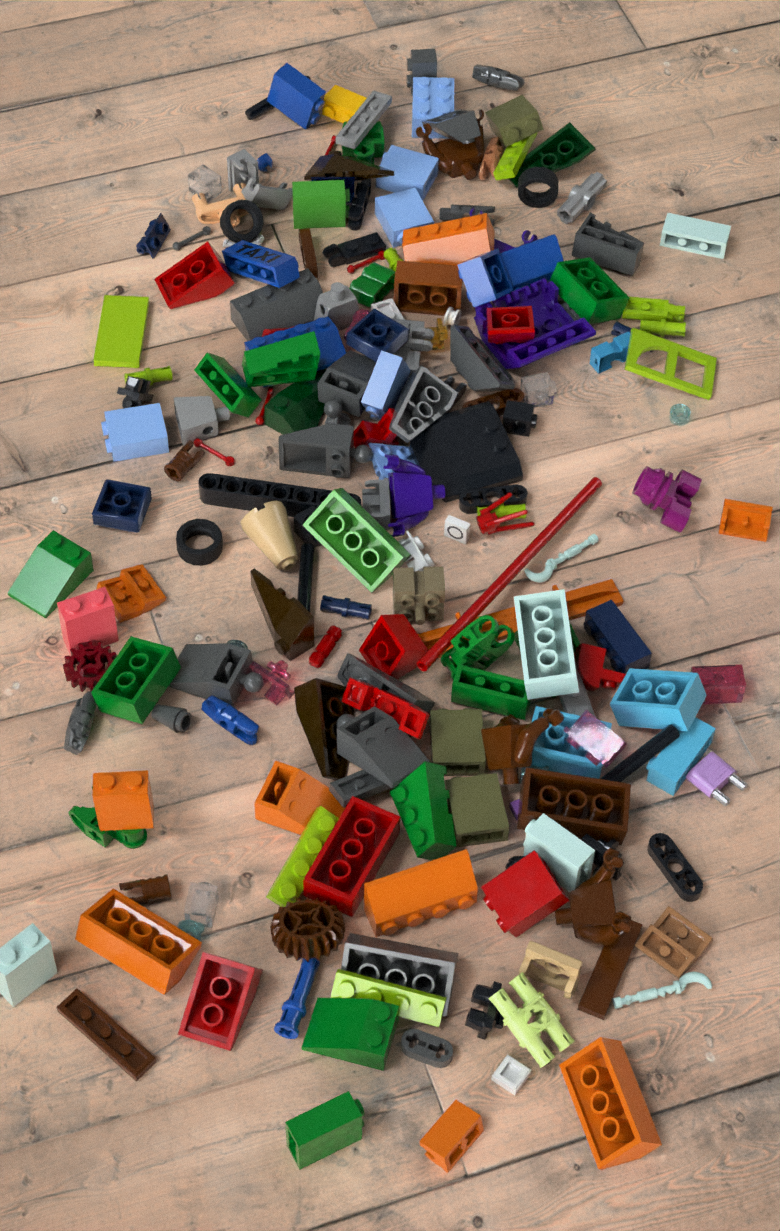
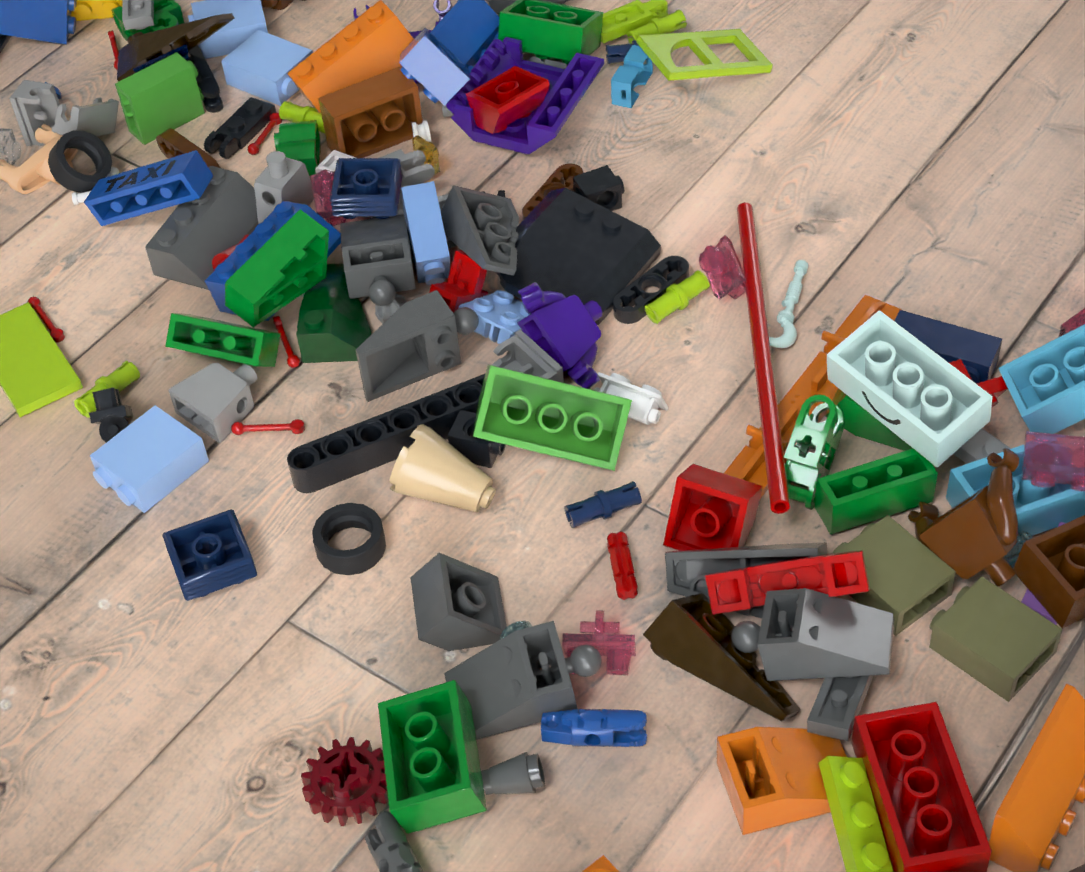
camera: 30 degrees left, 5 degrees down
(51, 574) = (185, 697): slope -> none
(88, 619) = (299, 719): coral brick -> none
(133, 592) = (313, 655): orange slope -> none
(150, 325) = (56, 333): none -> red hinge
(182, 462) = (241, 460): reddish brown hinge -> none
(195, 278) = (71, 250): red slope -> none
(205, 231) = (37, 199): dark grey hinge -> none
(221, 612) = (457, 604): none -> dark grey slope
(286, 618) = (552, 561): dark brown wedge -> none
(305, 575) = (528, 511): black axle -> none
(419, 593) = (684, 432): dark tan brick -> none
(424, 811) = (941, 668): green wedge -> none
(457, 529) = (647, 341): white tile -> none
(458, 211) = (327, 30): dark grey hinge -> none
(477, 362) = (500, 161): dark grey wedge -> none
(488, 521) = (677, 312): red plant -> none
(538, 389) = (590, 150): clear brick -> none
(539, 510) = (723, 269): none -> clear pink hips
(668, 494) = (835, 171): magenta beam -> none
(676, 410) = (759, 92): clear light blue bush -> none
(745, 520) = (937, 157): orange hinge -> none

